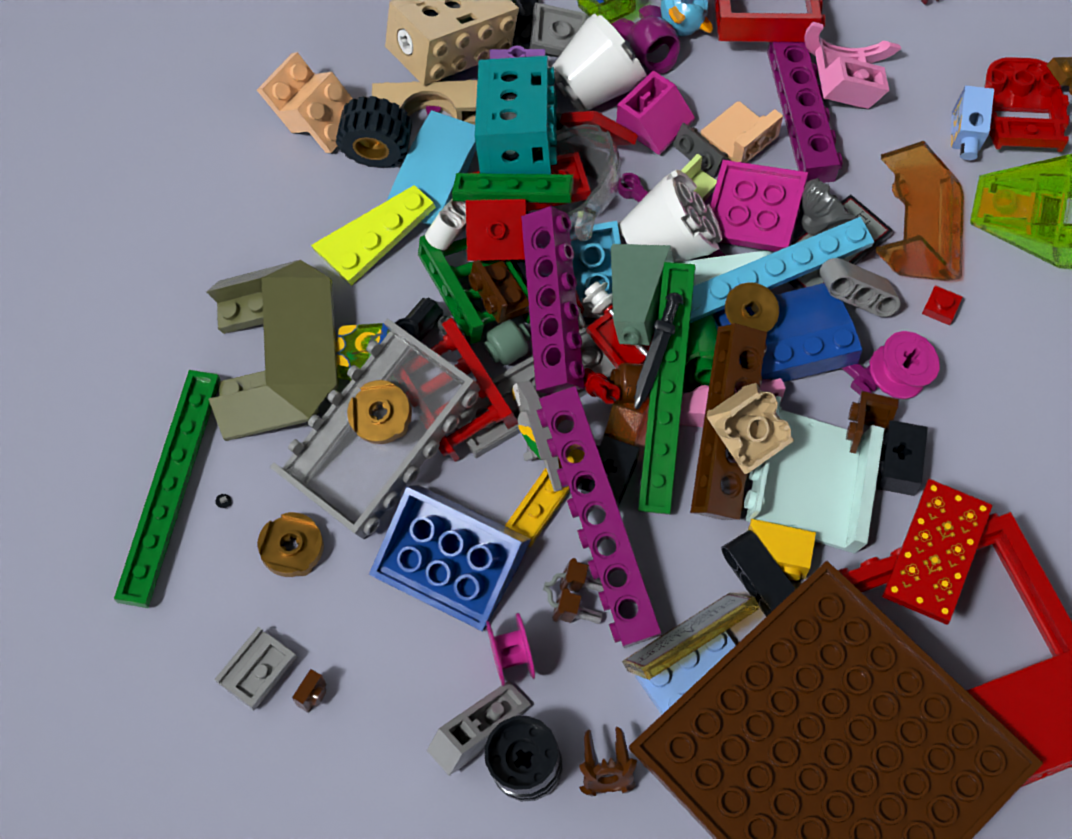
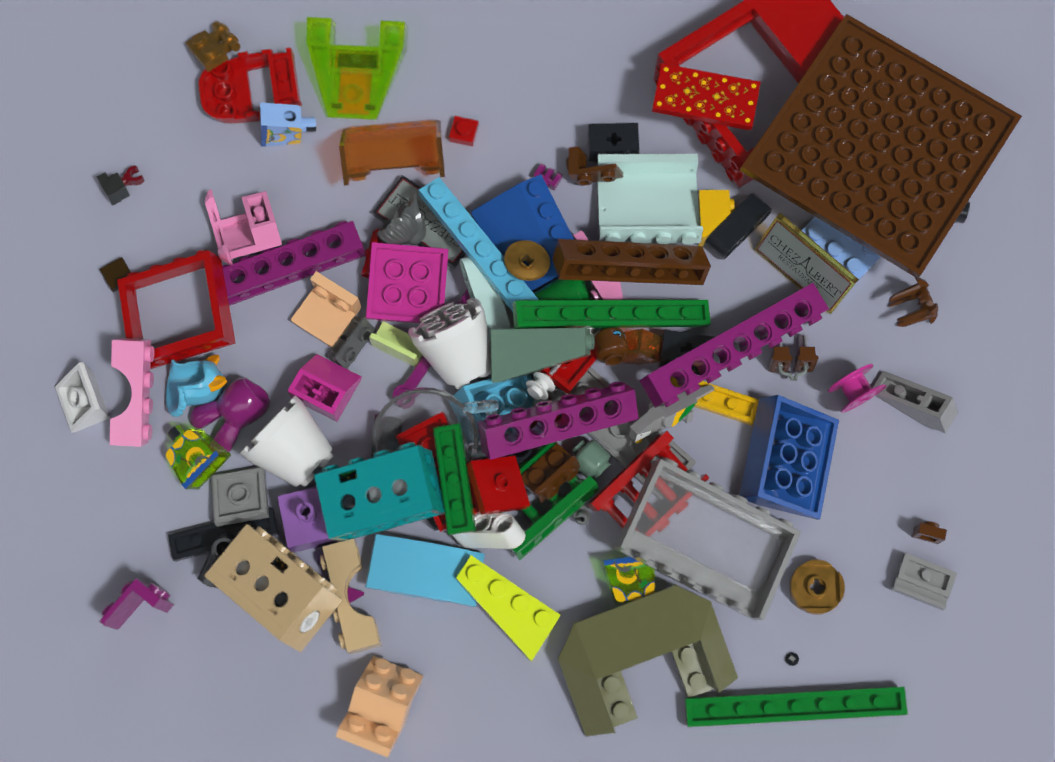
camera: 105 degrees left, 10 degrees up
(374, 132) = (407, 630): black wheel -> none
(392, 425) = (689, 551): pearl gold plate -> none
(421, 318) = (589, 540): black piece -> none
(518, 739) = (945, 351): black wheel -> none
(599, 386) = (622, 369): red axle -> none
(619, 133) = (363, 424): red tile -> none
(656, 351) = (576, 317): black sword -> none
(750, 426) = (641, 240): tan slope -> none
(859, 287) = (476, 187): light grey beam -> none
(917, 355) = (534, 148): dark pink piece -> none

